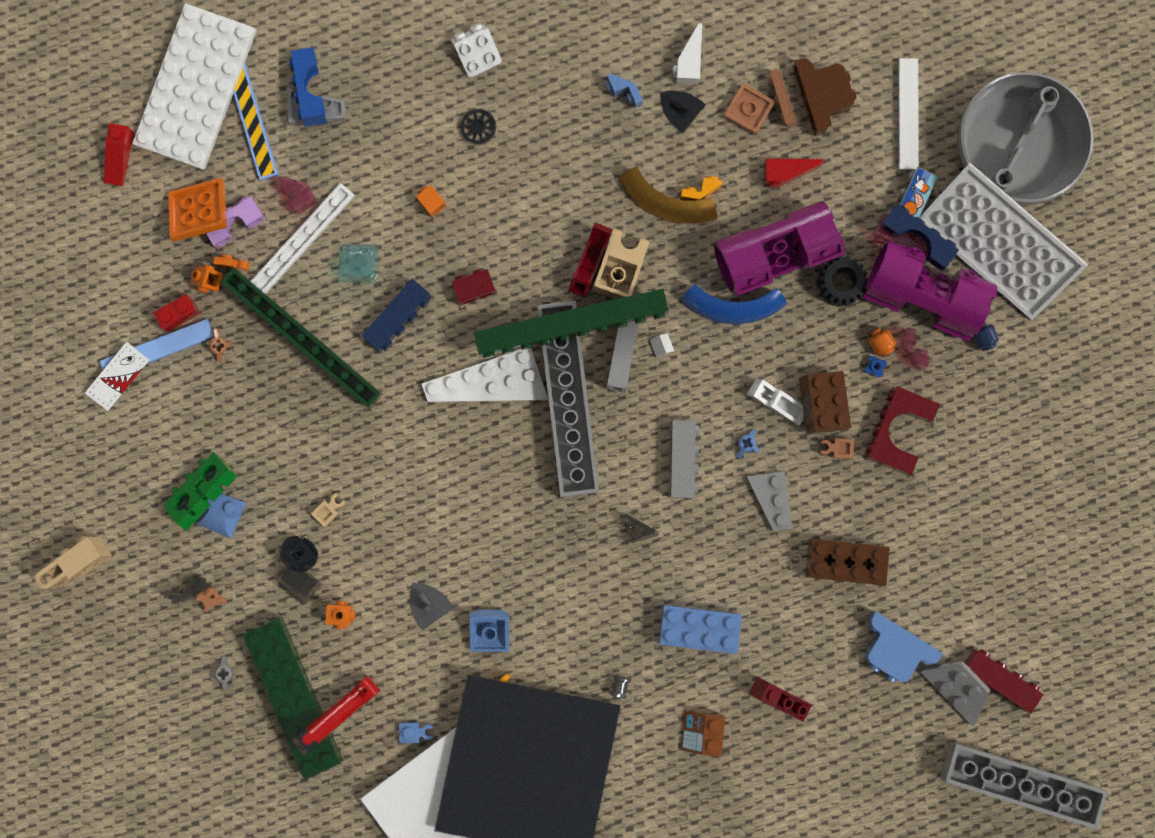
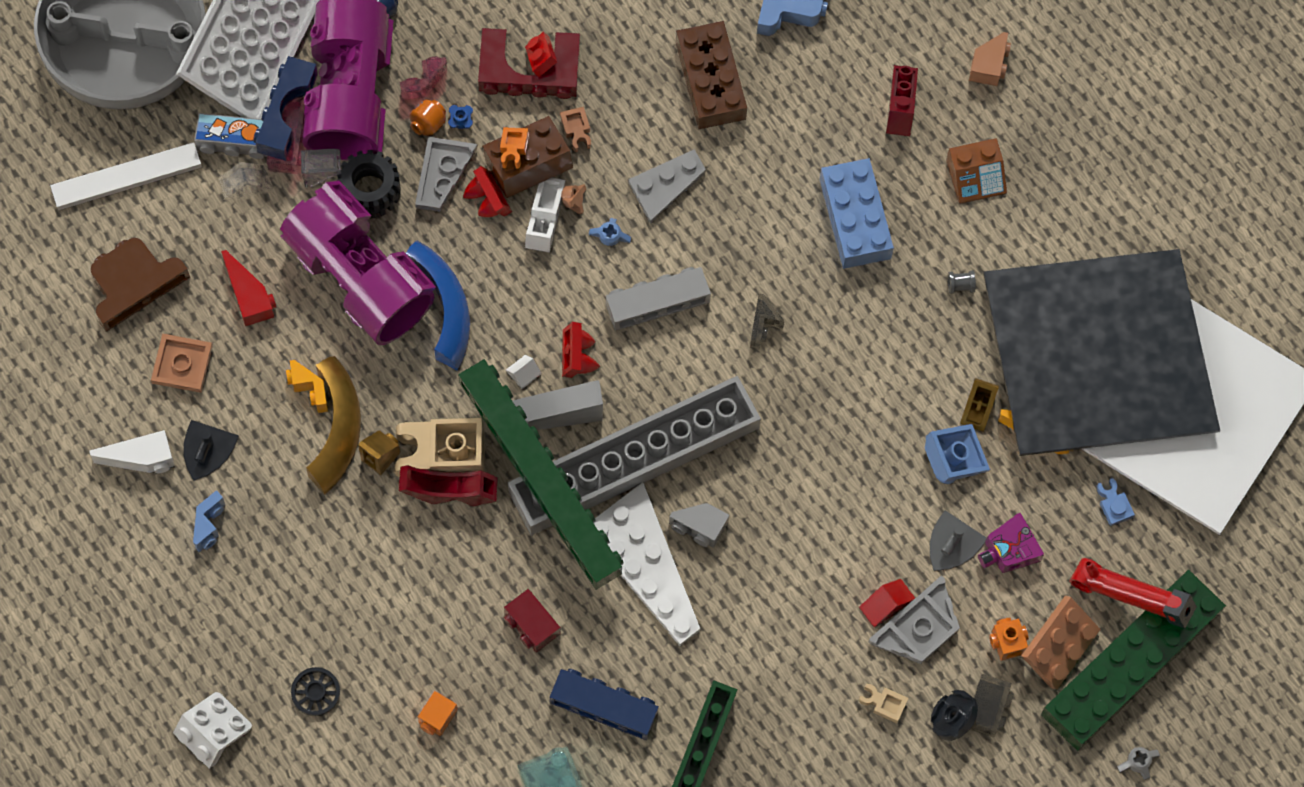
camera: 110 degrees left, 15 degrees down
(323, 650) = (1060, 642): none -> nougat plate
(374, 557) = (920, 626): none -> light grey wing
(400, 540) = (886, 602): none -> red slope
(407, 643) = (1011, 546): none -> magenta torso
(503, 429) = (701, 522): none -> light grey slope
(519, 661) = (979, 404): none -> pearl gold slope
(634, 222) = (379, 451): none -> pearl gold slope
(655, 383) = (573, 343): none -> red tile
(781, 98) = (155, 328): nougat plate -> none
(783, 426) = (573, 197): none -> nougat piece
(790, 777) = (988, 61): none -> nougat slope
(814, 365) = (485, 184): none -> red tile
(833, 390) = (513, 143): none -> orange plate
(837, 338) = (441, 170): none -> light grey wing
(867, 248) = (319, 165): none -> clear slope
(875, 196) = (245, 180): none -> clear slope
(904, 440) = (541, 54): none -> red plate

